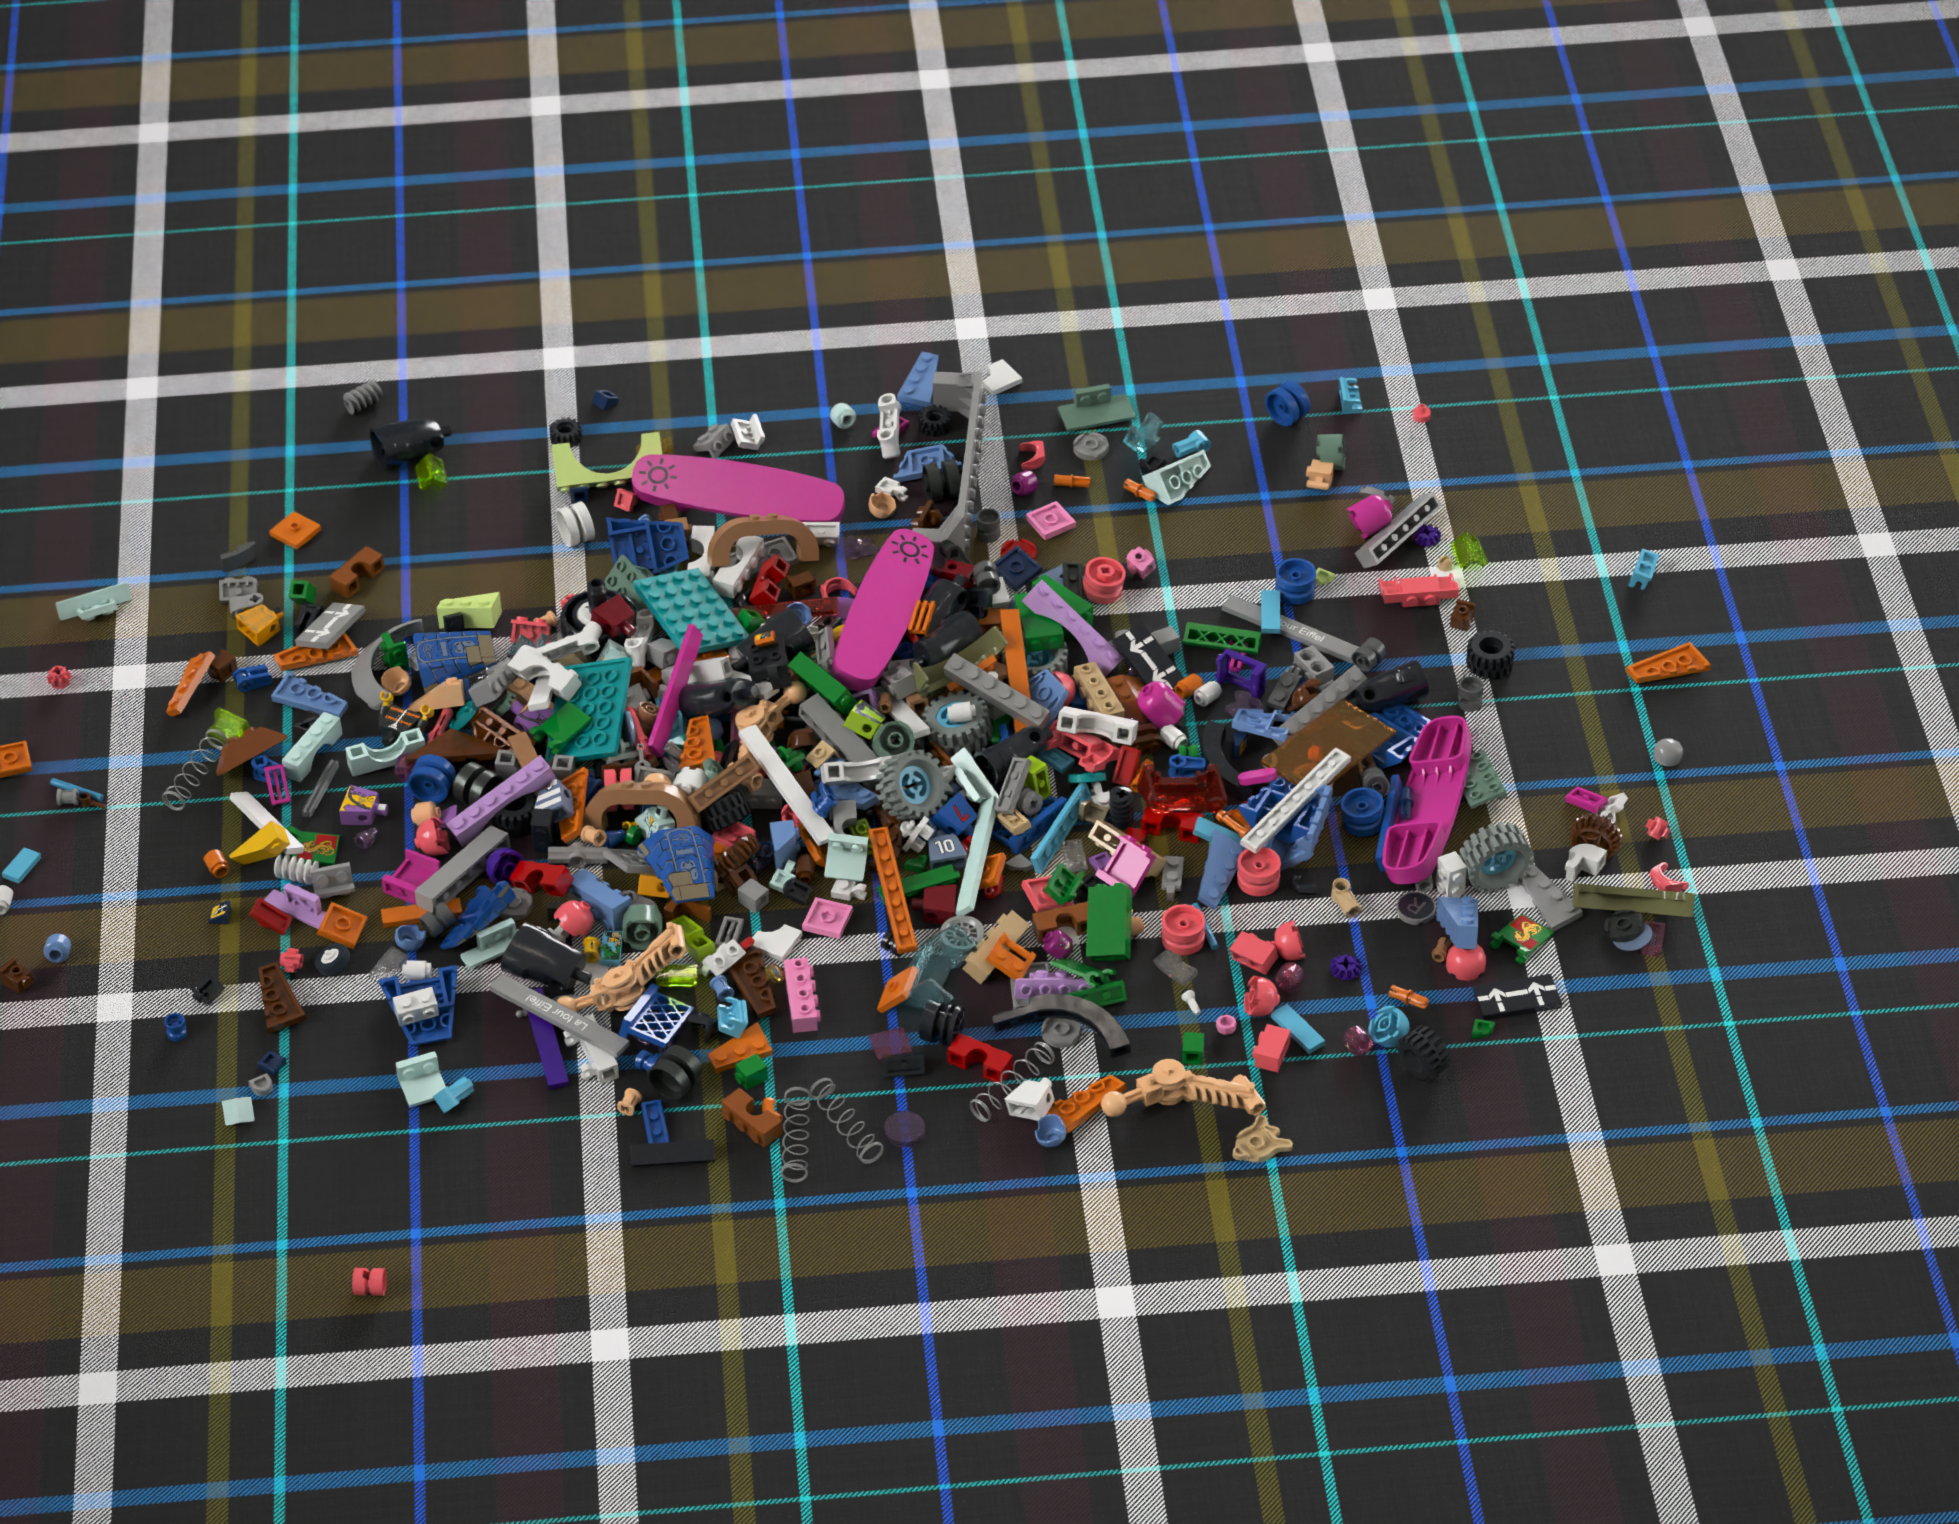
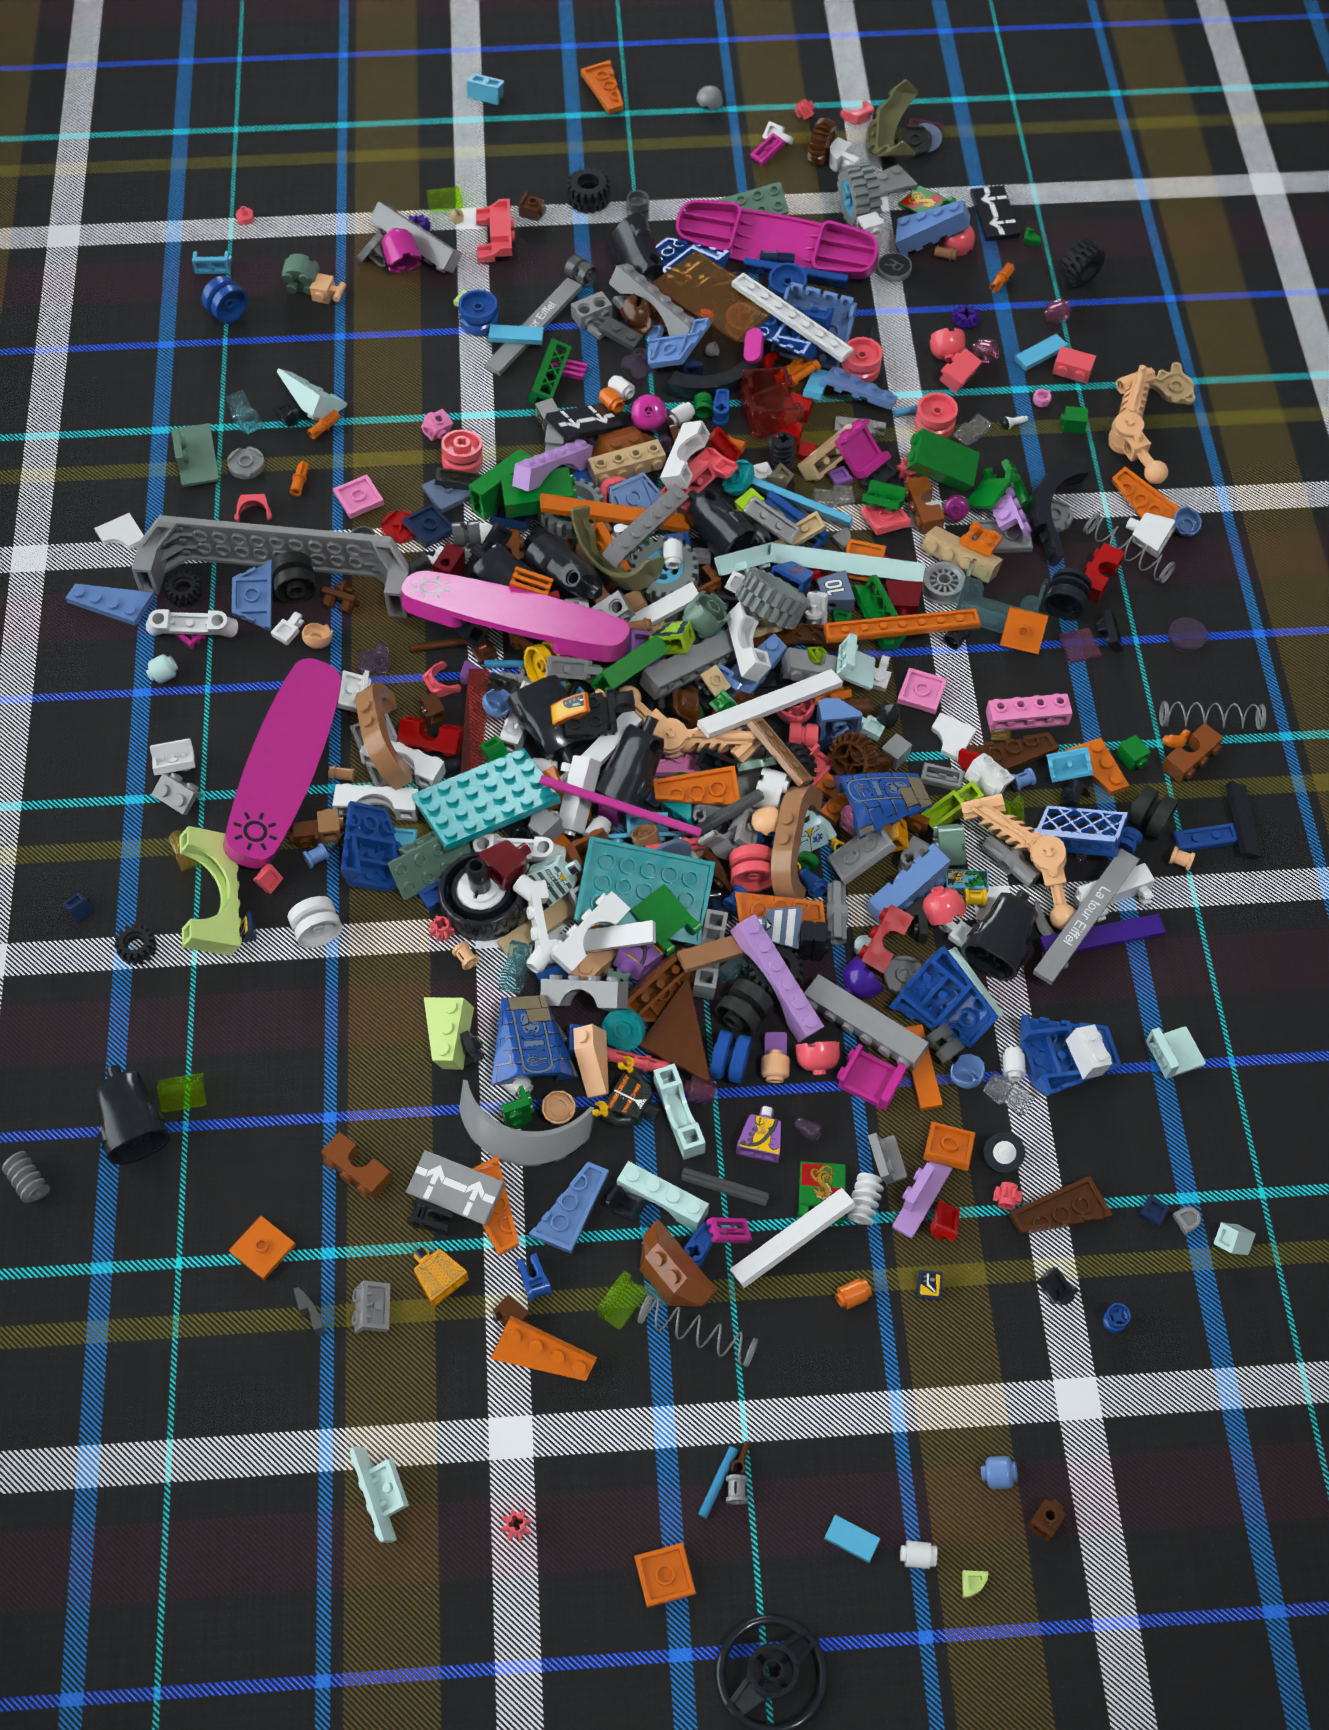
camera: 90 degrees left, 15 degrees up
(243, 603) = (405, 1296): light grey piece -> none
(262, 845) = (846, 1228): yellow slope -> none
(302, 591) = (394, 1223): green brick -> none
(452, 1095) = (1189, 1018): medium azure piece -> none
(529, 629) = (485, 967): coral bracket -> none
(590, 834) = (824, 889): light nougat bush -> none
(763, 830) = (802, 734): none -> coral wheel
(824, 801) = (794, 666): blue piece -> none
(867, 1145) = (1227, 665): light grey piece -> none
(1024, 483) = (300, 514): magenta head -> none
(1195, 442) = (261, 379): medium azure piece -> none
(1257, 680) = (615, 348): dark purple window -> none
(1261, 998) = (1016, 369): coral cylinder -> none
(1344, 898) = (884, 309): tan piece -> none
(1375, 779) = (757, 271): dark grey wheel -> none
(1388, 1026) = (1048, 284): medium azure cylinder -> none

